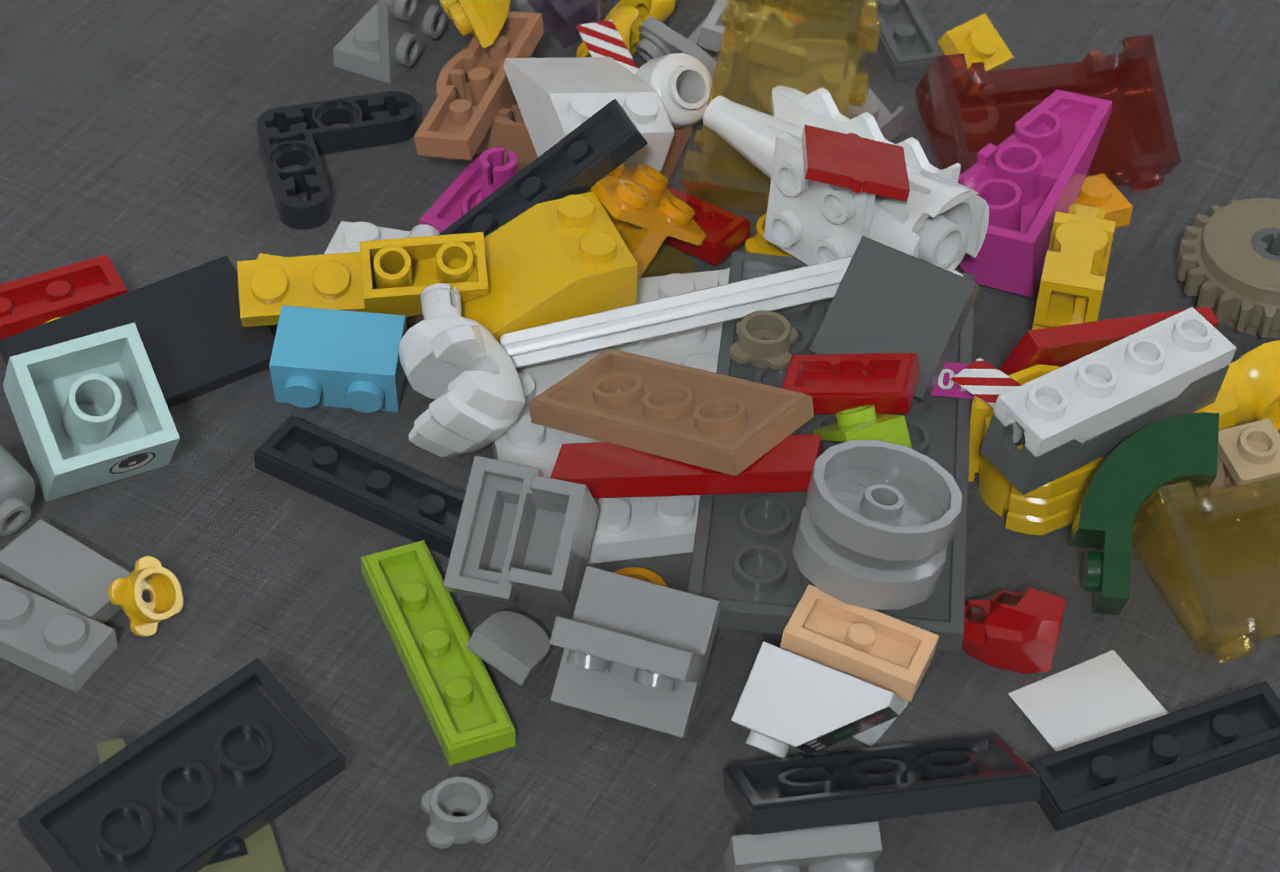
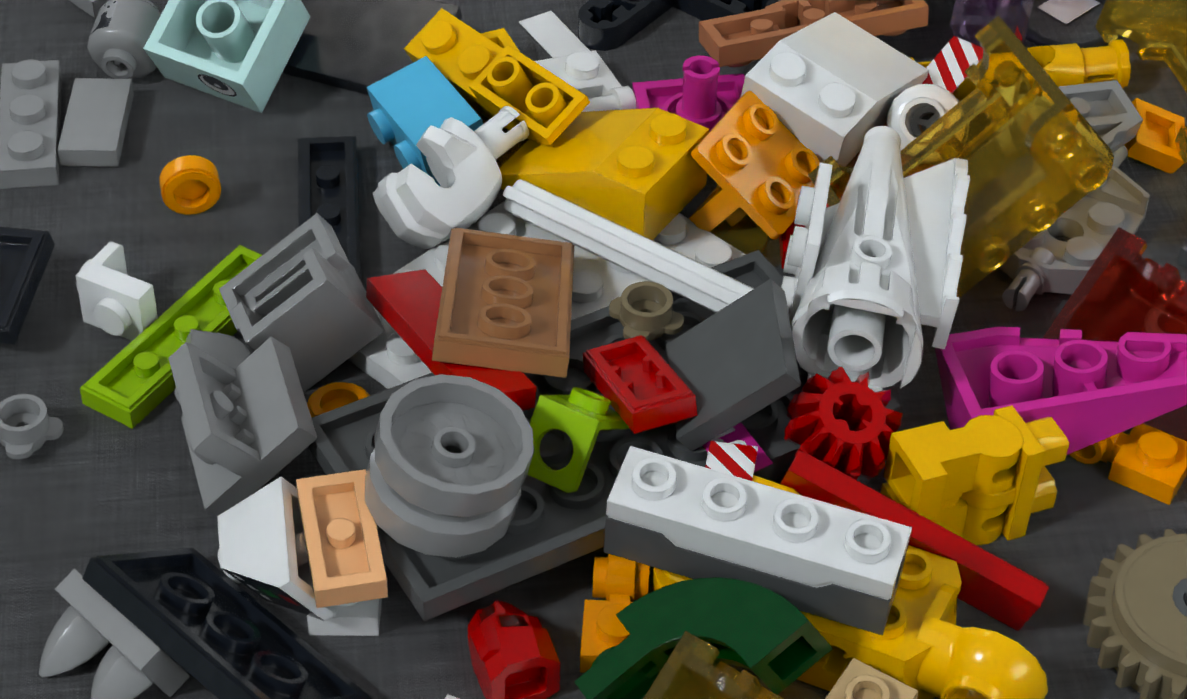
camera: 55 degrees right, 0 degrees up
(163, 592) = (88, 152): yellow plate -> none
(250, 548) = (190, 184): none -> light orange tile
(280, 239) = (553, 35): none -> white sticker
(357, 670) = (113, 298): none -> white bracket
(561, 171) = (716, 99): black tile -> none
(855, 163) = (831, 219): red piece -> none
(1004, 306) = (843, 423): none -> red gear
(1019, 558) = (619, 583): none -> light orange plate

